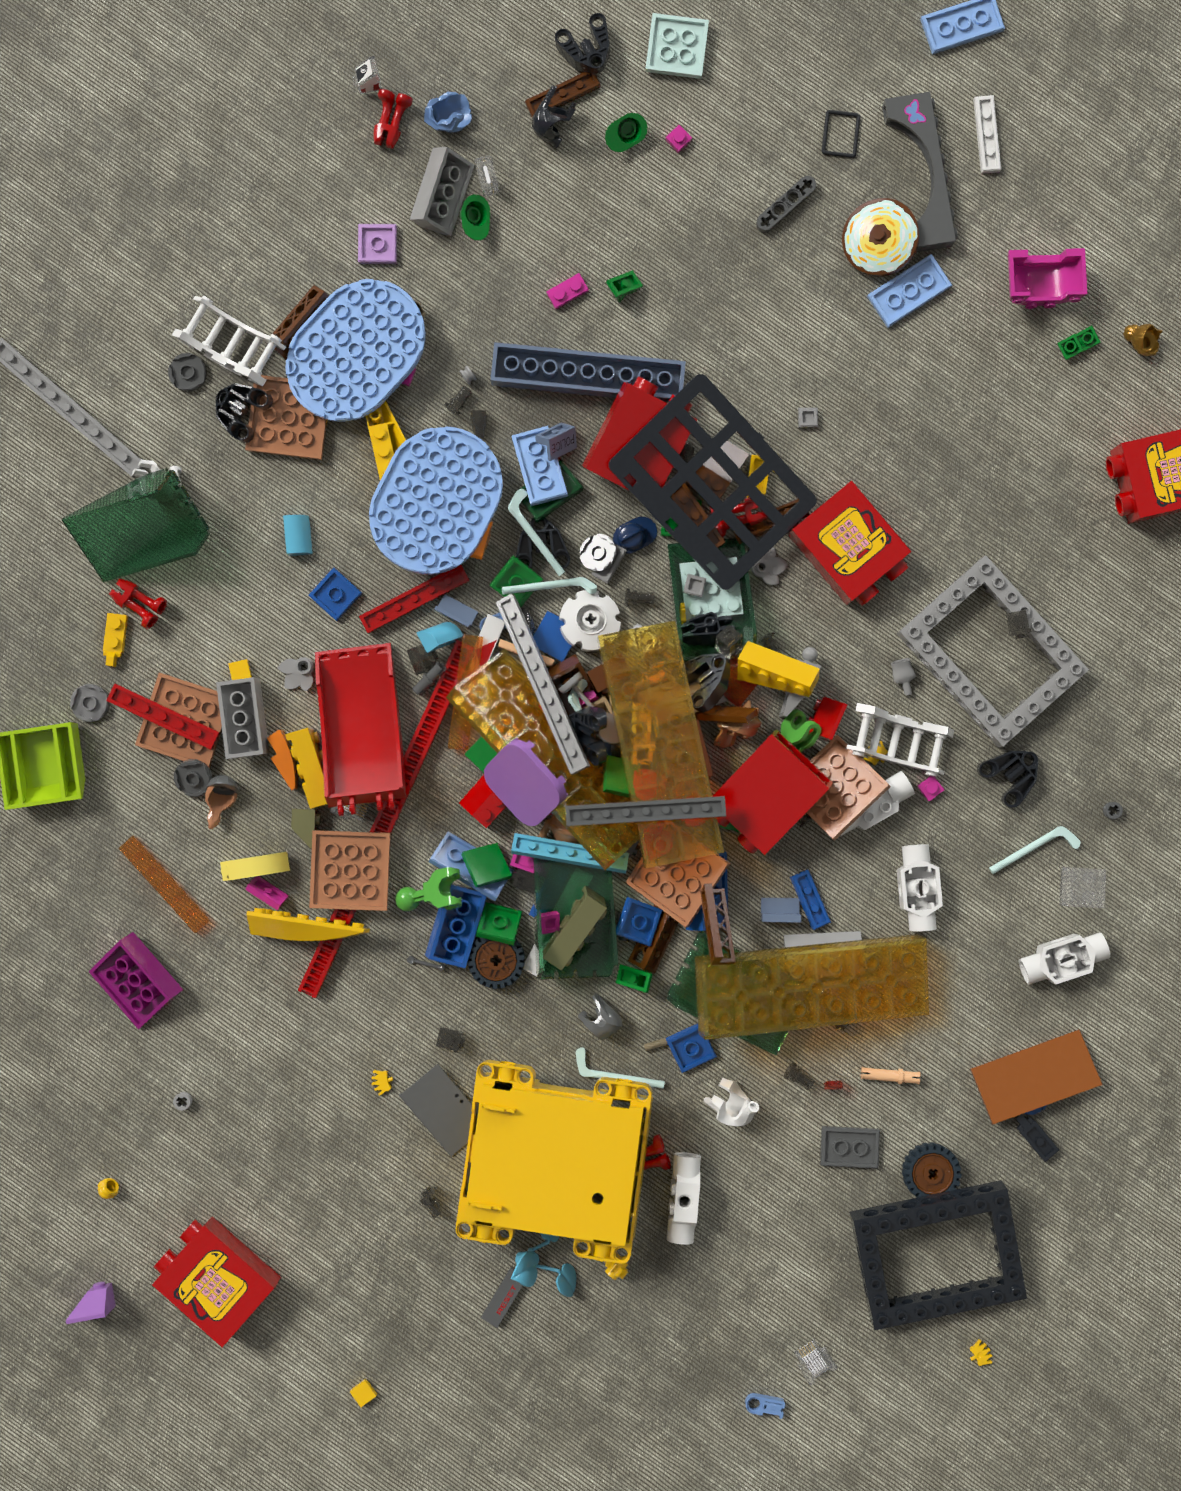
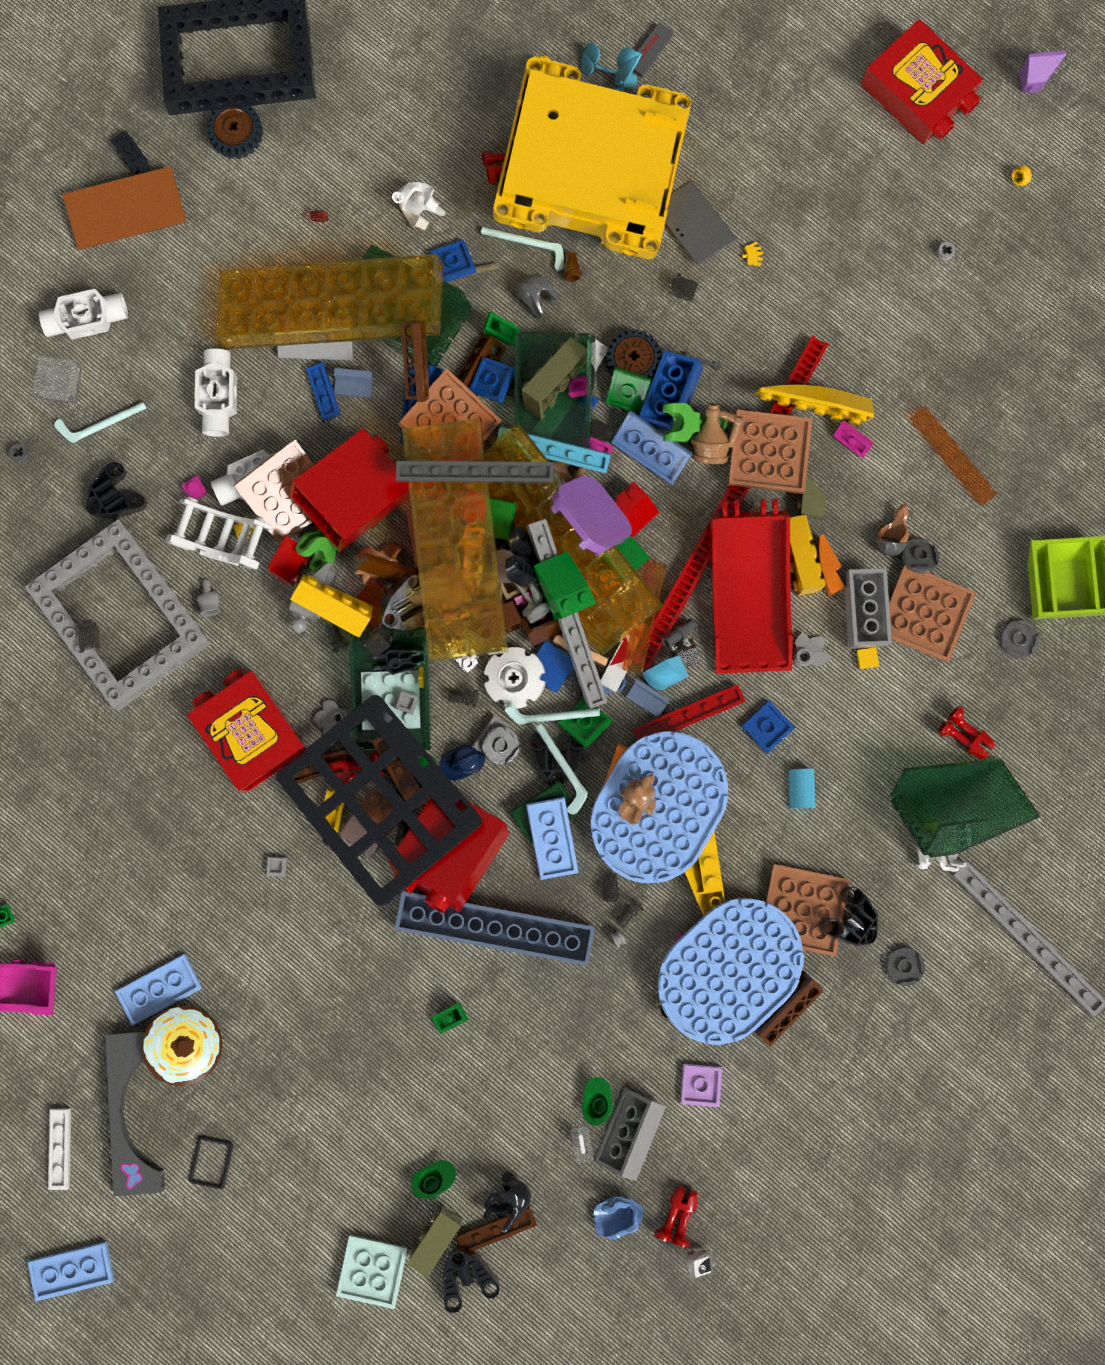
camera: 175 degrees left, 5 degrees down
(114, 638) = (991, 701): yellow hinge -> none
(135, 980) = (985, 366): magenta slope -> none
(163, 716) = (946, 616): red plate -> none
(224, 359) = (866, 975): white fence -> none
(254, 866) = (863, 462): light yellow arch -> none
(409, 873) = (712, 443): none -> medium nougat piece
(431, 1205) = (714, 138): clear smoke bracket -> none
(456, 502) = (638, 798): none -> medium nougat head
(486, 865) = (636, 446): green tile -> none
(547, 707) = (563, 586): none -> green slope
(558, 439) = (531, 862): sand blue panel -> none
(566, 1048) = (572, 269): none -> reddish brown cone
(567, 291) = (509, 1018): dark pink plate -> none
(620, 76) = (434, 1240): none -> olive brick
(678, 138) = (379, 1171): dark pink plate -> none
(684, 1213) = (471, 122): white brick -> none
(786, 204) = (276, 1092): dark grey beam -> none
(796, 1075) = (353, 228): clear smoke pin -> none
(849, 1146) = (309, 159): dark grey tile -> none
(890, 1075) = (264, 221): light nougat pin -> none

